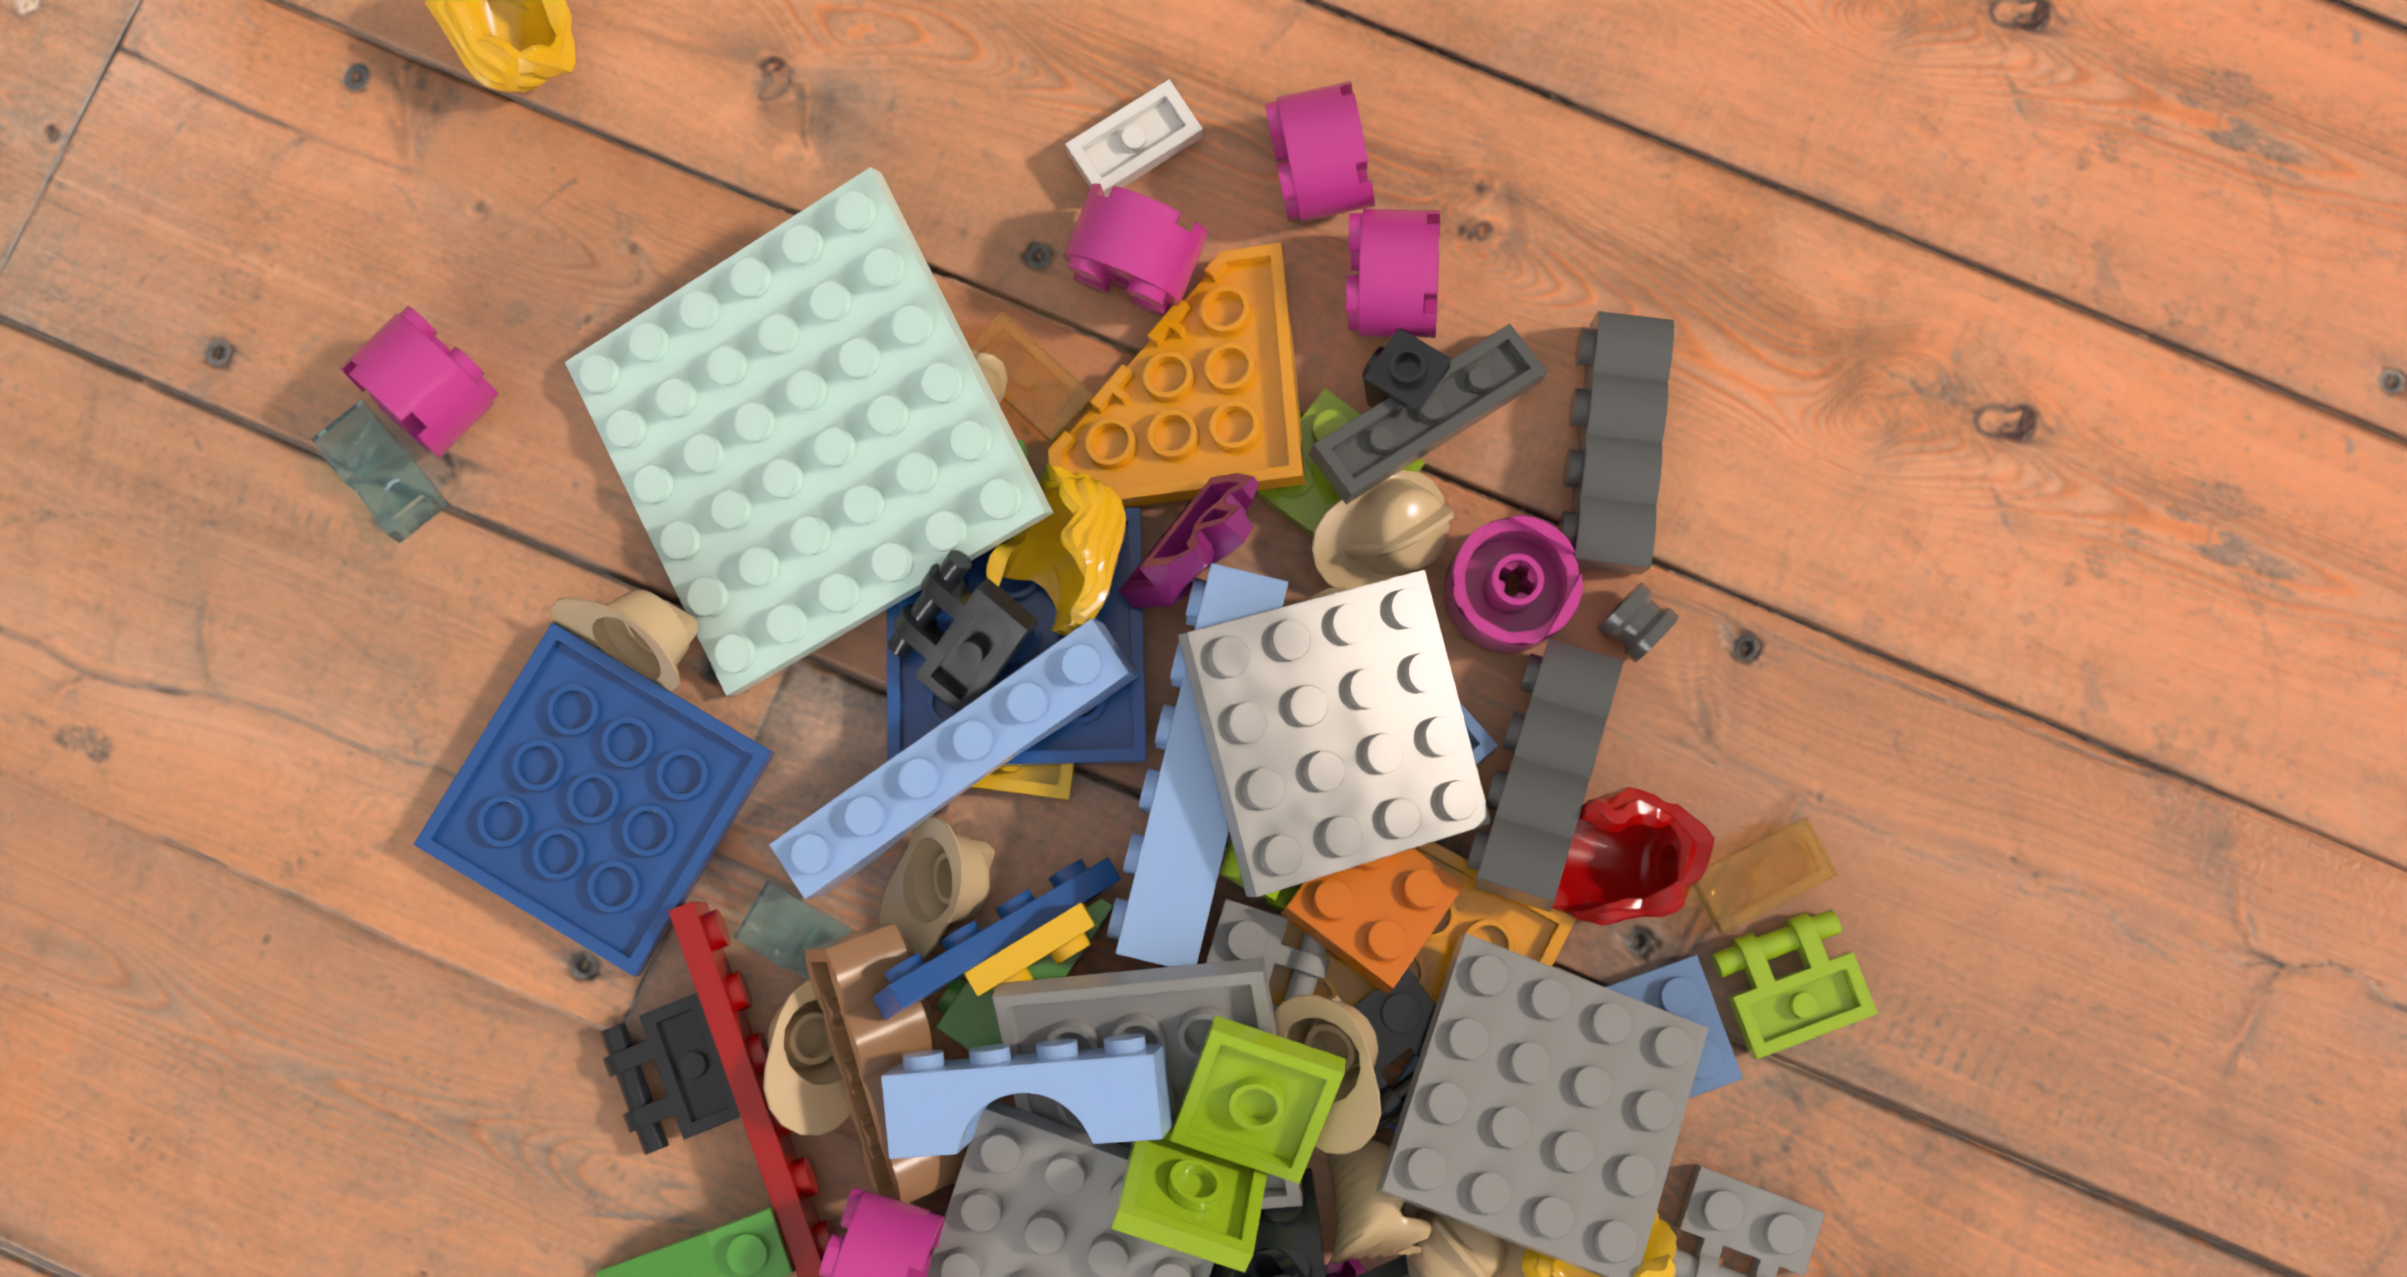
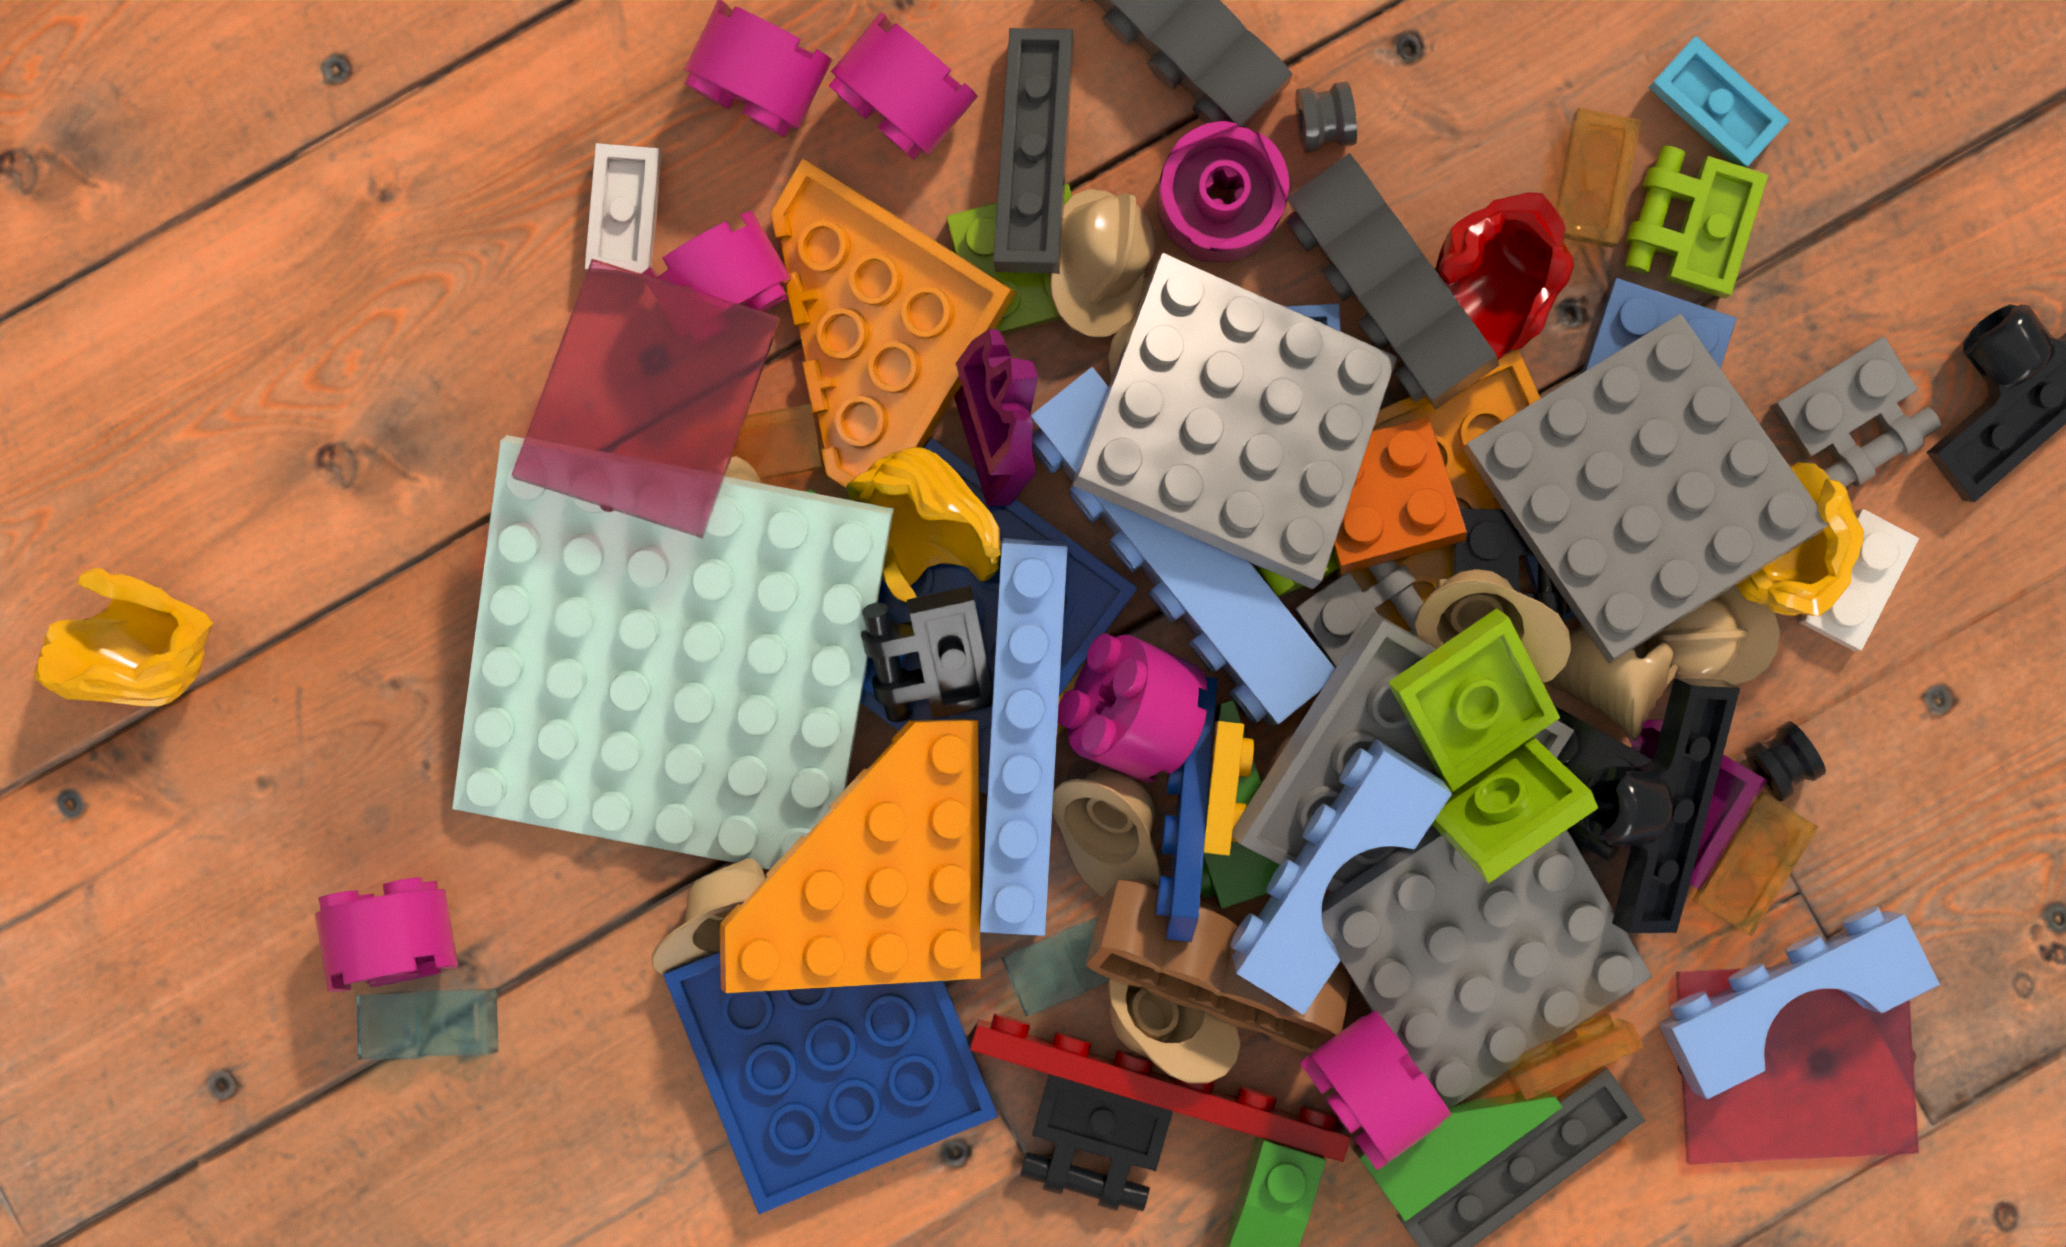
camera: 50 degrees left, 5 degrees up
(745, 731) = (878, 883): none -> light orange plate
(989, 253) = (646, 398): none -> clear pink piece
(1044, 829) = (1134, 707): none -> dark pink brick
(1404, 372) = (988, 144): black bracket -> none
(1902, 928) = (1718, 103): none -> medium azure plate

